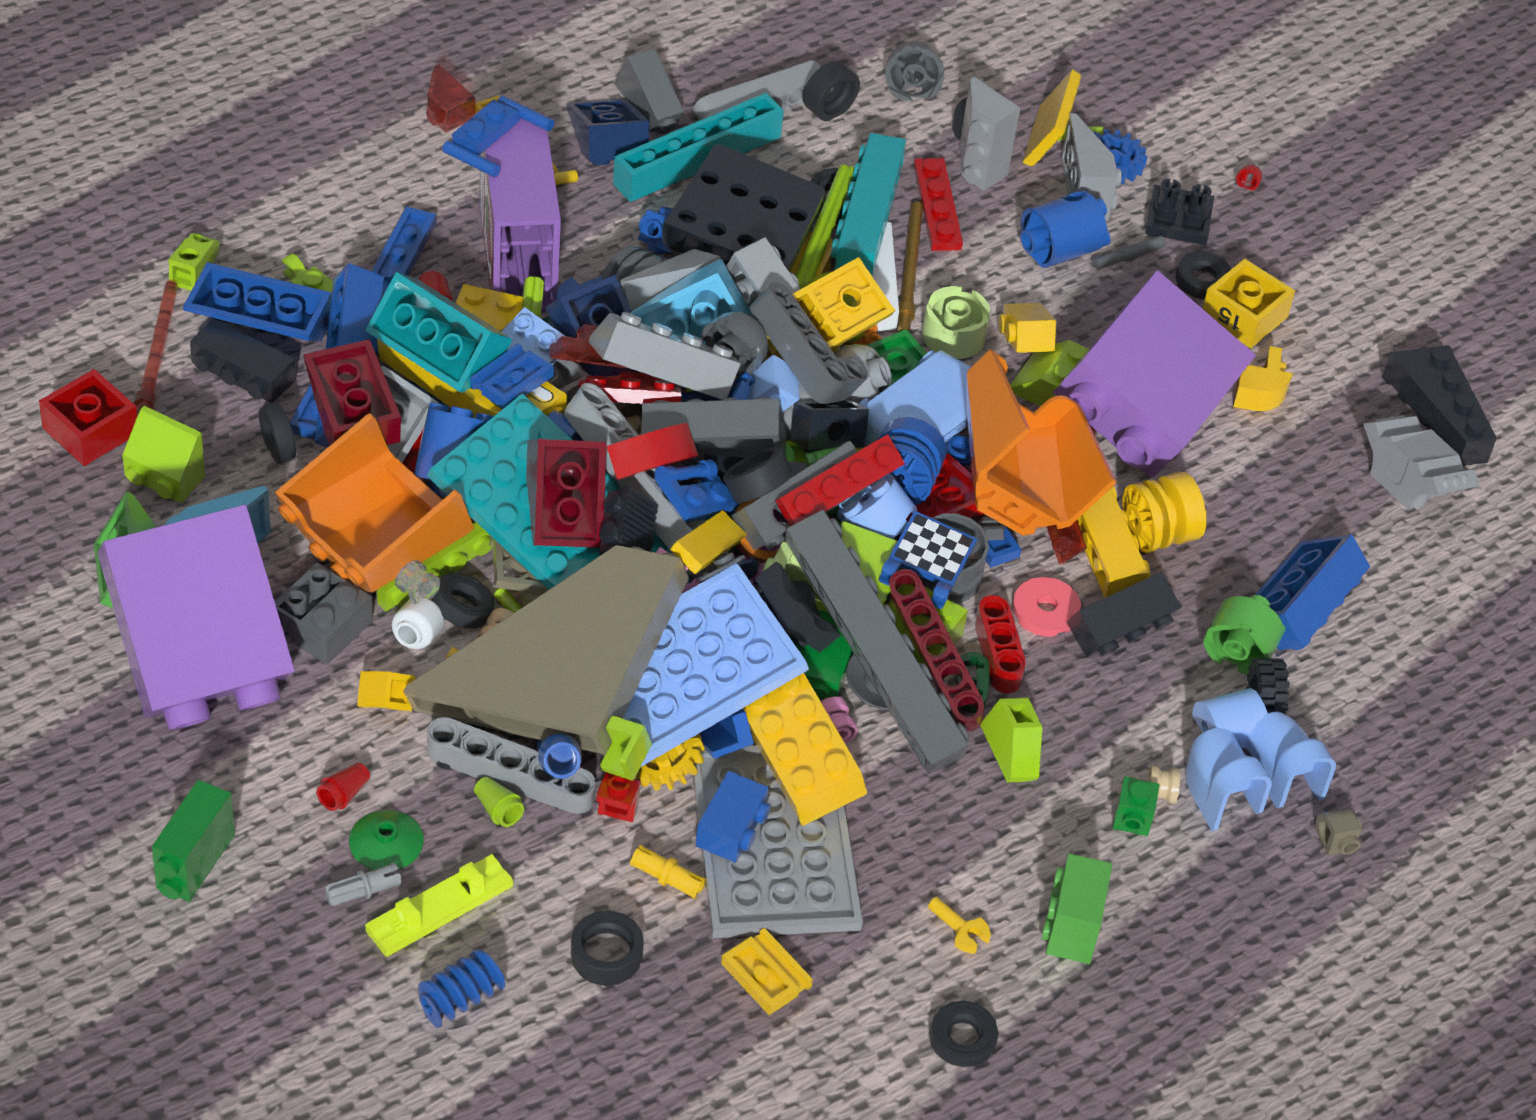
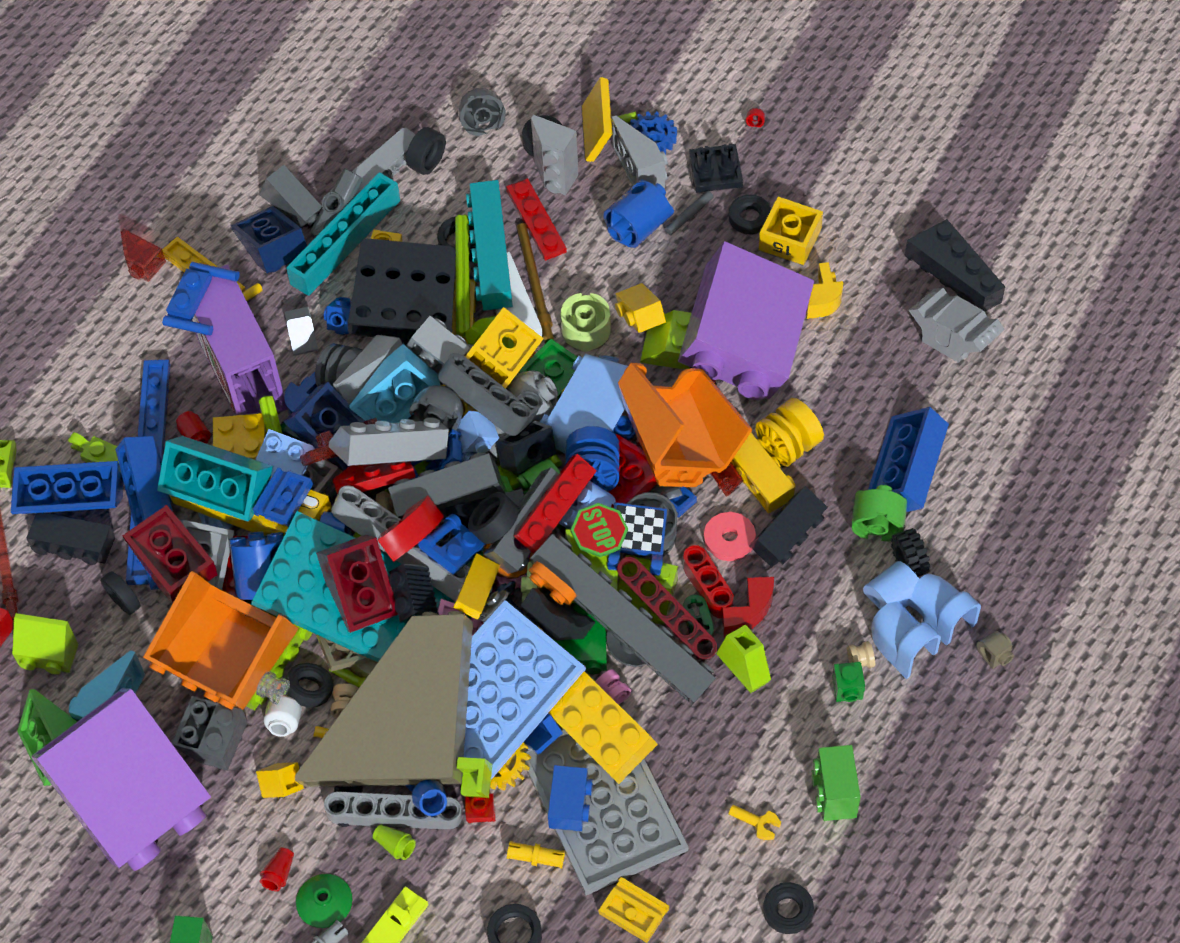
camera: 10 degrees left, 10 degrees up
(605, 233) = (301, 331): none -> slope
(703, 105) = (343, 192): none -> dark grey piece
(806, 570) = (559, 590): none -> orange plate
(883, 530) = (599, 530): none -> piece
(1057, 685) = (759, 601): none -> red brick

